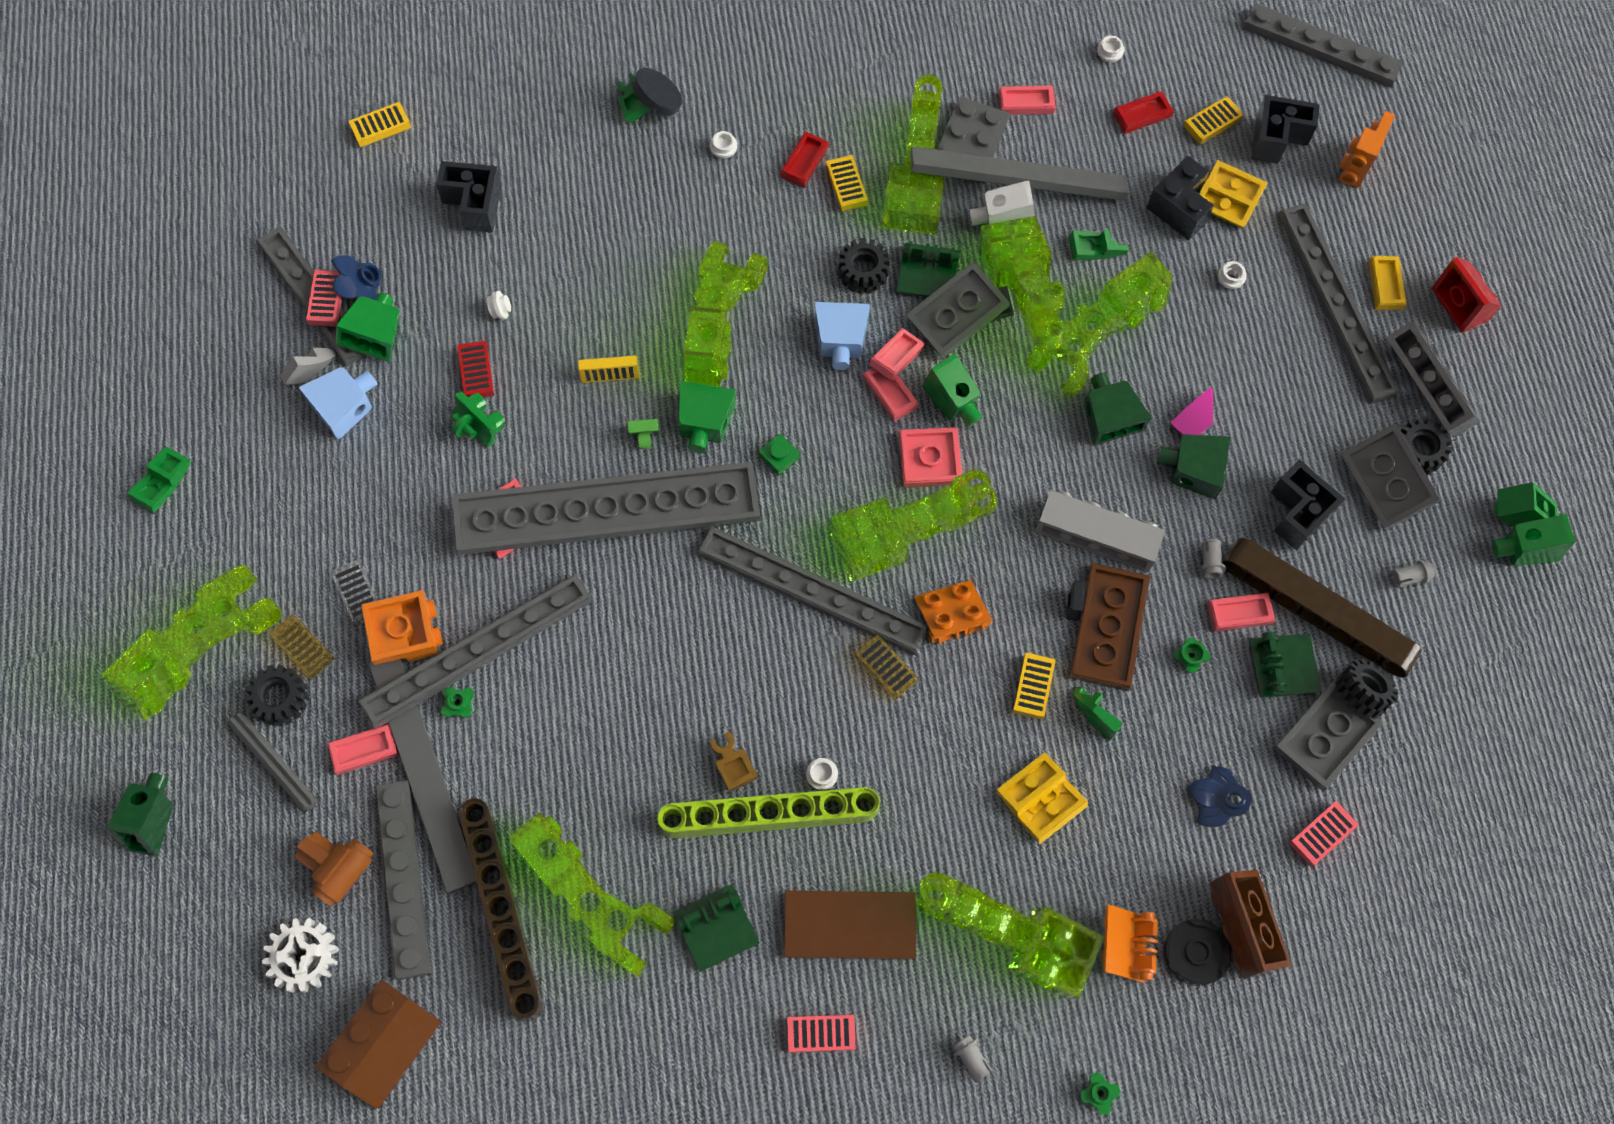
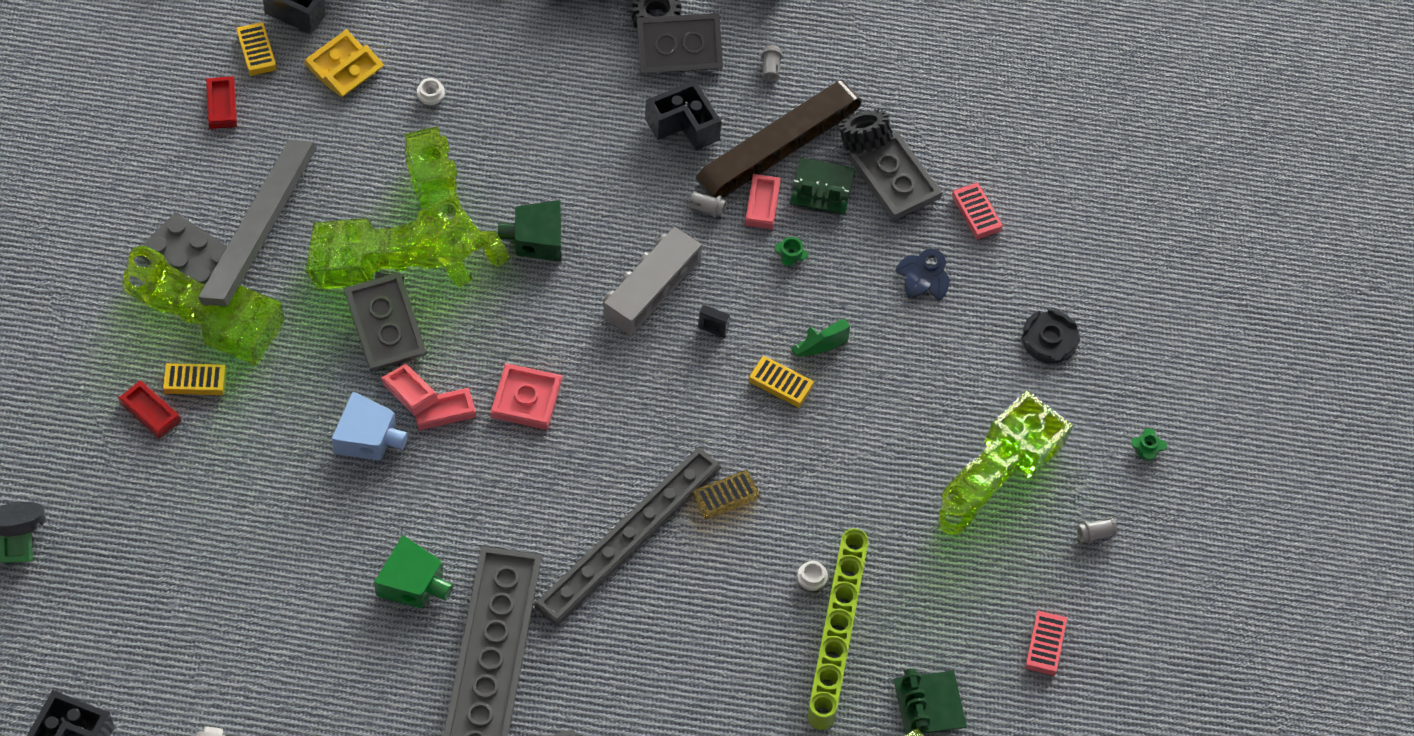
camera: 75 degrees left, 10 degrees down
(609, 369) = (328, 649): yellow tile -> none
(644, 429) = (411, 635): bright green tile -> none
(709, 323) = (333, 539): clear neon green brick -> none
(723, 145) = (101, 478): white plate -> none
(734, 766) = (785, 645): pearl gold plate -> none
(779, 454) = (477, 524): green plate -> none
(850, 925) = (956, 593): reddish brown tile -> none
(868, 252) = (303, 404): black tyre -> none
(878, 537) = (596, 457): clear neon green brick -> none
(926, 268) = (324, 337): dark green hinge -> none
(953, 390) = (470, 351): green torso -> none
(953, 611) = (690, 422): orange hinge -> none
(1005, 205) = (292, 245): white torso -> none
(1027, 99) = (164, 194): coral tile -> none
(1042, 798) = (885, 408): yellow slope -> none
(1095, 246) = (353, 190): green slope -> none
(1109, 627) = (753, 307): reddish brown tile -> none
(1110, 49) = (138, 103): white plate -> none
(1126, 944) = (1020, 378): orange hinge -> none
(1178, 198) = (335, 105): black brick -> none
(1197, 416) = (566, 169): dark pink slope -> none
(1197, 463) = (613, 182): dark green torso -> none
(1249, 923) = (1042, 287): reddish brown slope -> none
(1338, 304) = (488, 22): dark grey tile -> none

